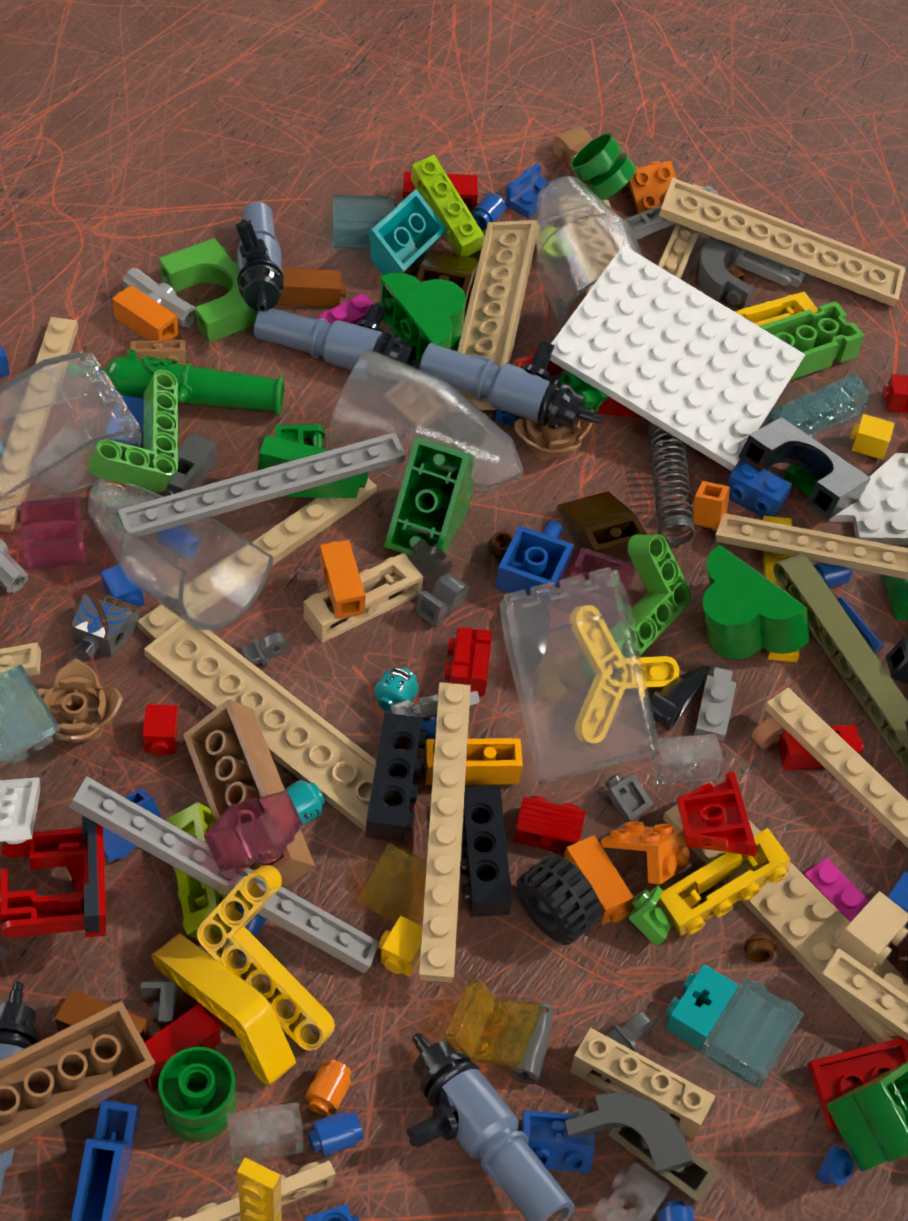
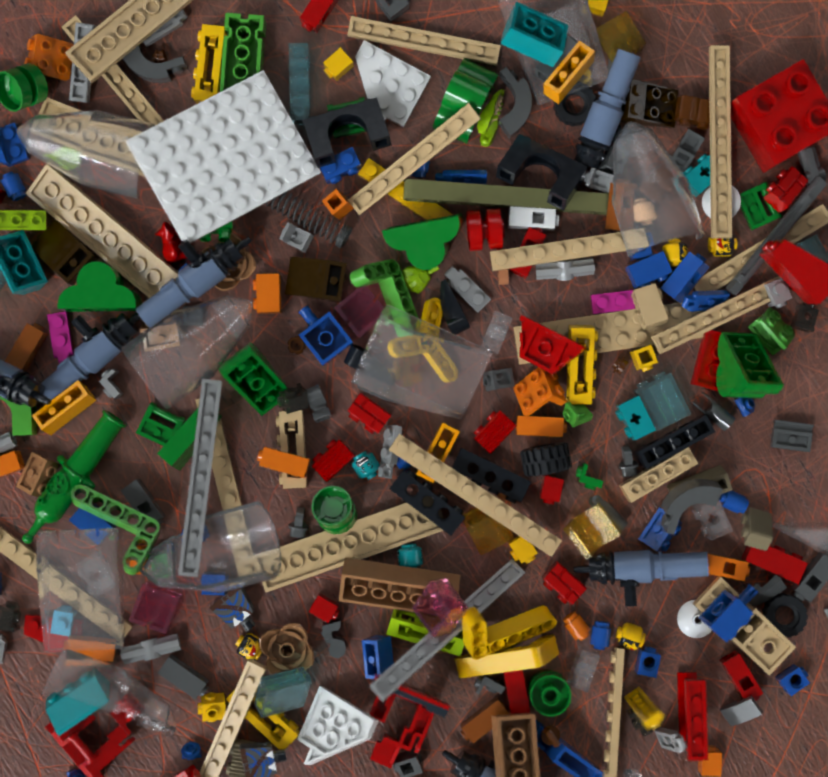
camera: 55 degrees left, 35 degrees up
(52, 660) = (248, 646): none -> head
(112, 769) = (337, 644): none -> dark grey leg
(128, 1123) = (550, 735): none -> reddish brown plate
(261, 343) = (64, 407): none -> light orange brick
(311, 668) = (334, 510): none -> green wheel
(321, 375) = (111, 388): none -> light grey bracket
(360, 1181) = (630, 636): none -> yellow head
(377, 647) = (332, 460): none -> red brick
(386, 1033) = (563, 583): none -> red brick
(518, 941) = (551, 489): none -> red brick
(545, 486) = (267, 294): none -> orange brick
(564, 989) = (590, 483): none -> green bracket
(635, 483) = (296, 237): none -> light grey bracket
(687, 639) = (416, 278): none -> lime piece
(736, 1092) = (674, 441): none -> black brick
(792, 1128) = (717, 413): none -> dark grey piece
(796, 966) = (644, 358): none -> yellow brick
(810, 671) = (479, 230): none -> red wheel
(835, 803) = (565, 269): none -> light grey piece
(880, 742) = (532, 217): none -> white brick

